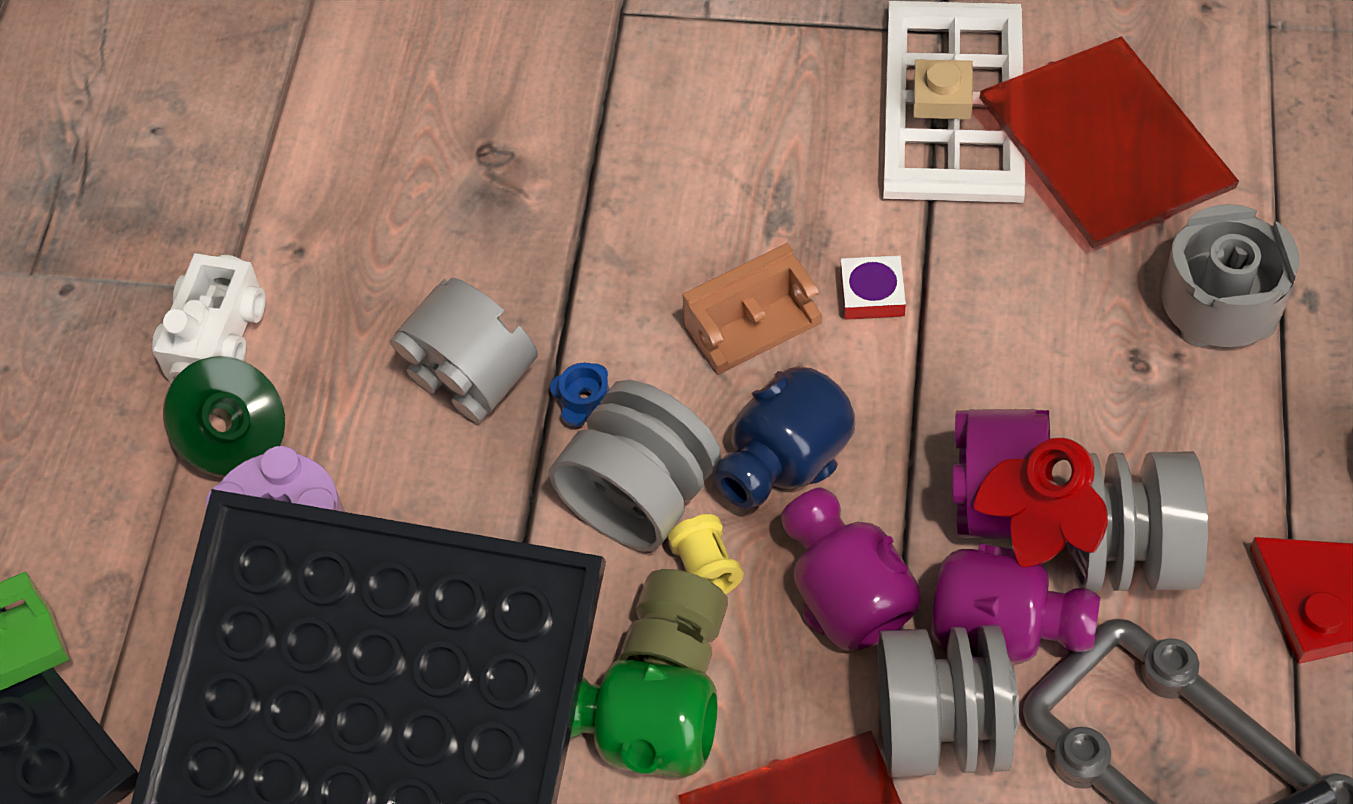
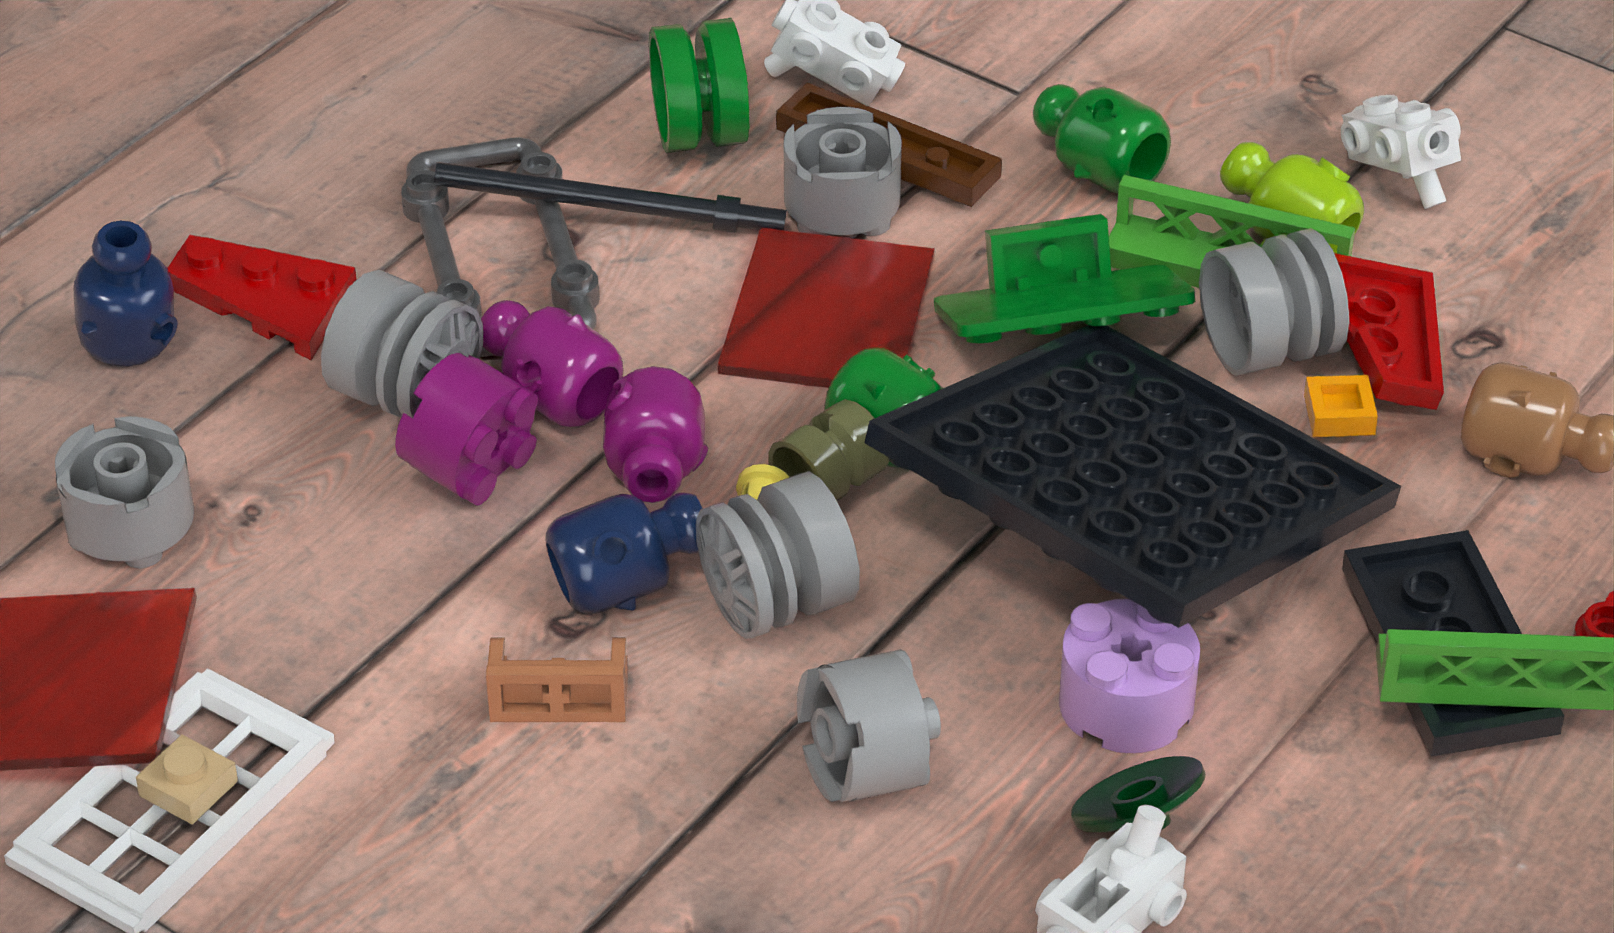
camera: 155 degrees left, 15 degrees down
(577, 380) = (768, 685): blue plate -> none
(872, 287) = (424, 660): tile -> none
(946, 700) = (661, 304): light grey wheel -> none
(1039, 509) = (463, 326): red plate -> none

